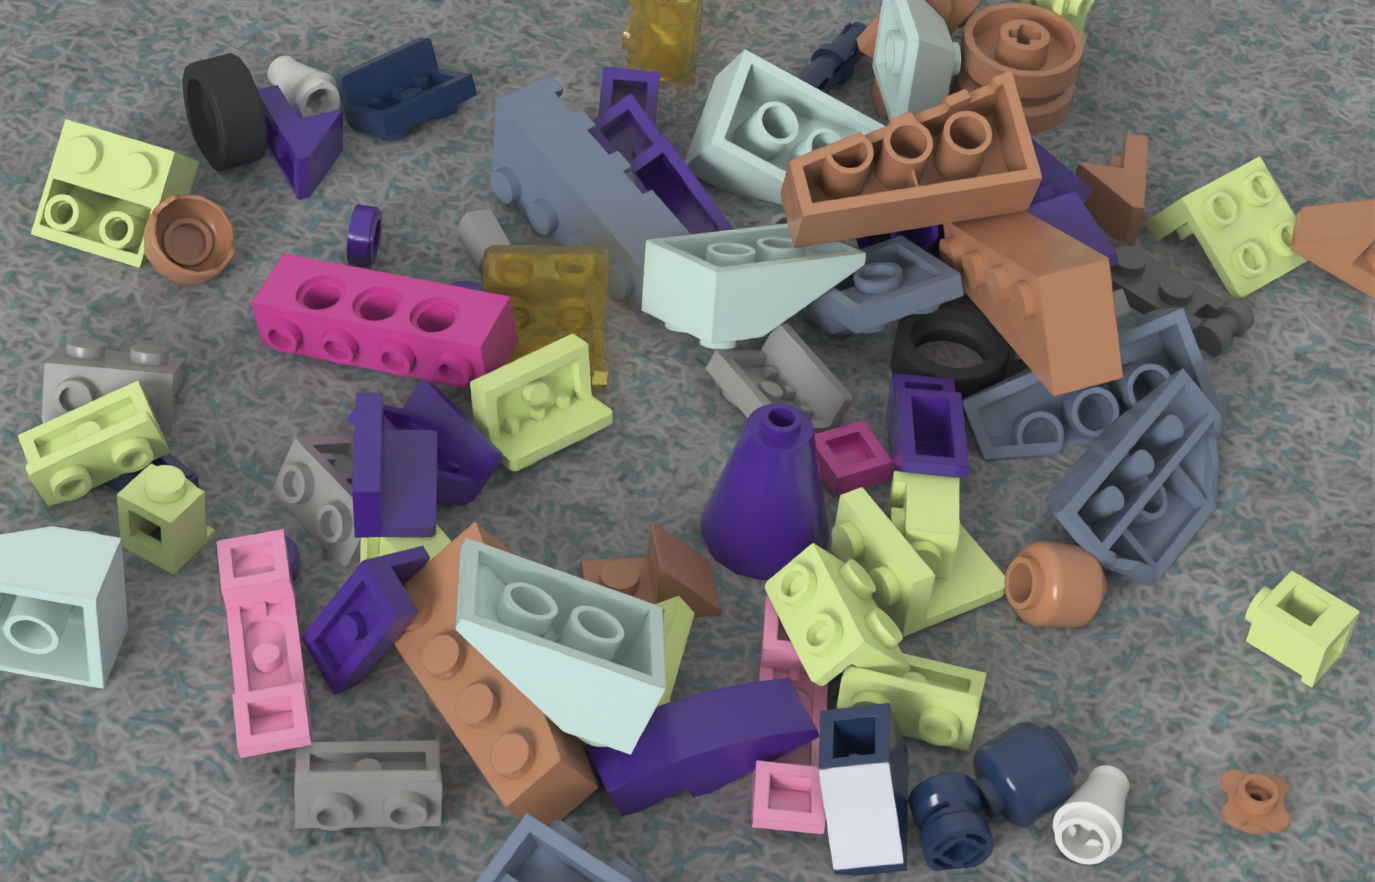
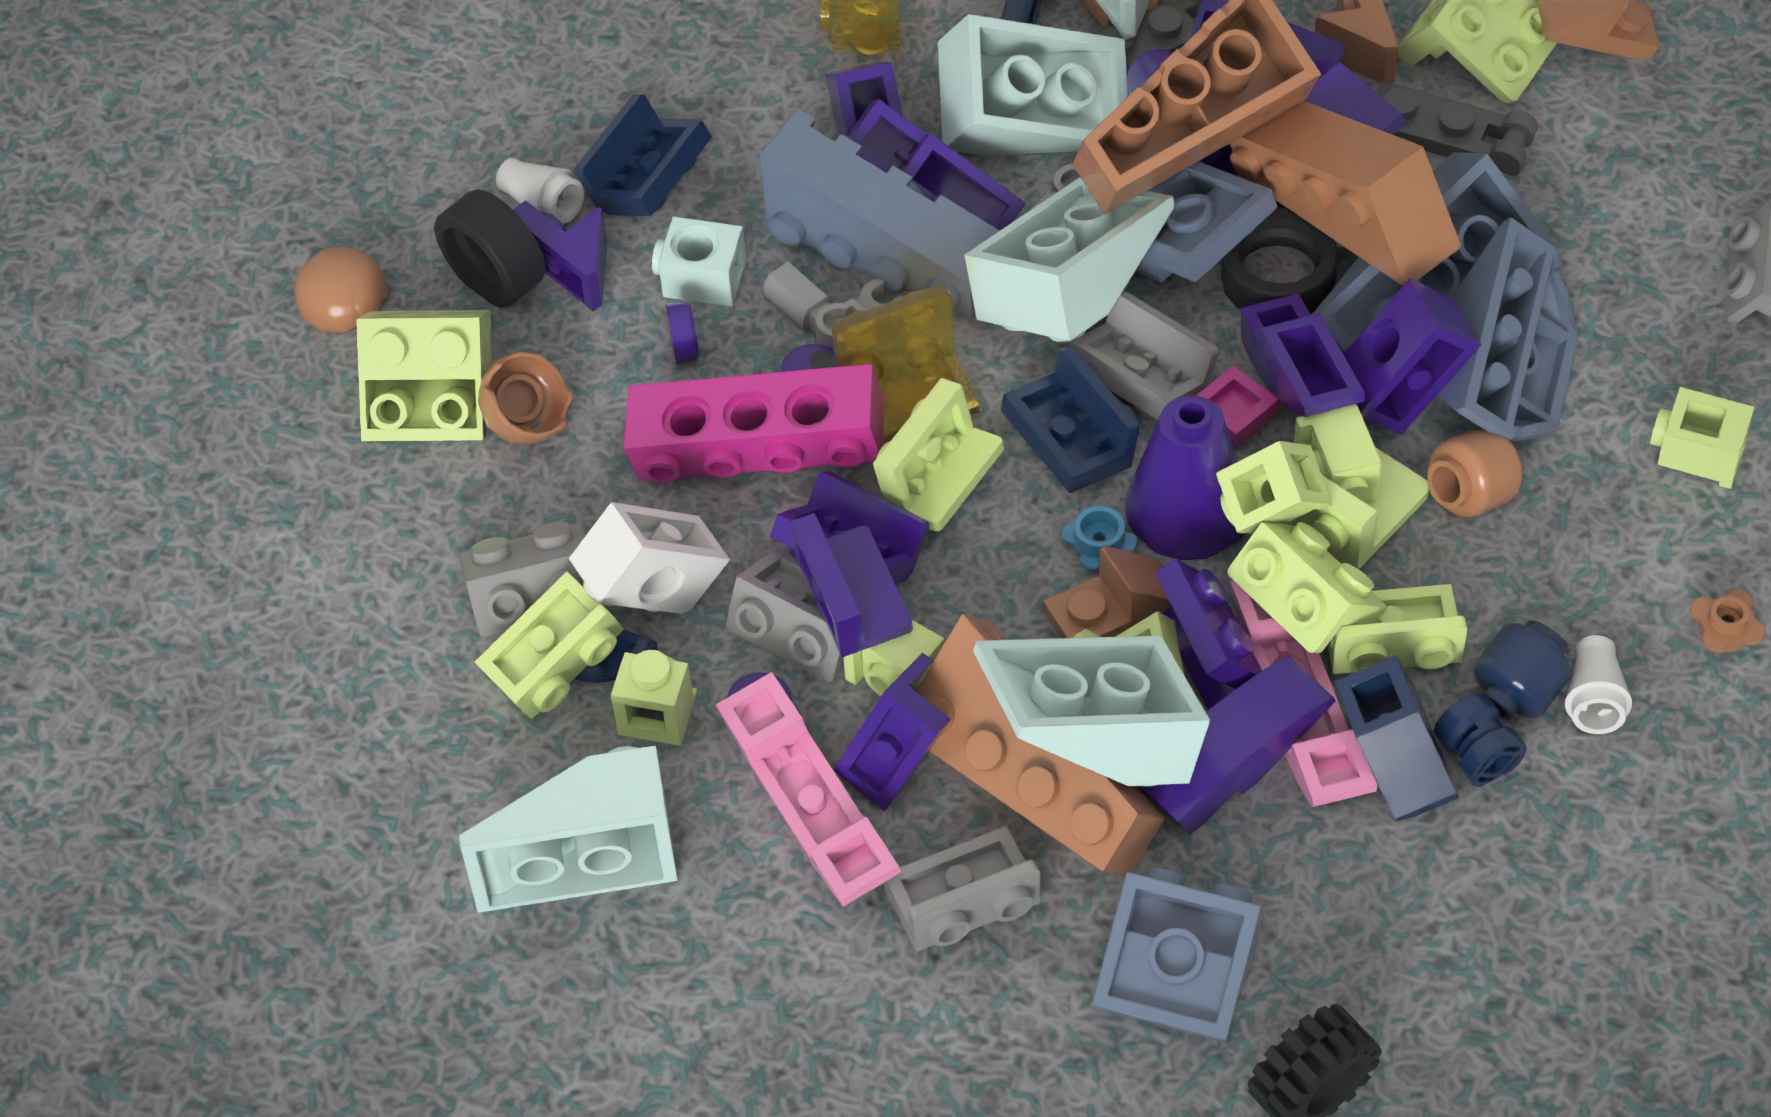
camera: 10 degrees left, 10 degrees up
(84, 99) = (339, 288): none -> nougat hair
(219, 395) = (648, 559): none -> white brick
(413, 185) = (700, 261): none -> light aqua brick
(665, 511) = (1097, 522): none -> dark azure plate
(686, 420) = (1074, 422): none -> dark blue bracket
(722, 625) = (1207, 632): none -> dark purple bracket
(841, 514) = (1280, 469): none -> yellowish green brick
(1030, 457) = (1409, 354): none -> dark purple brick

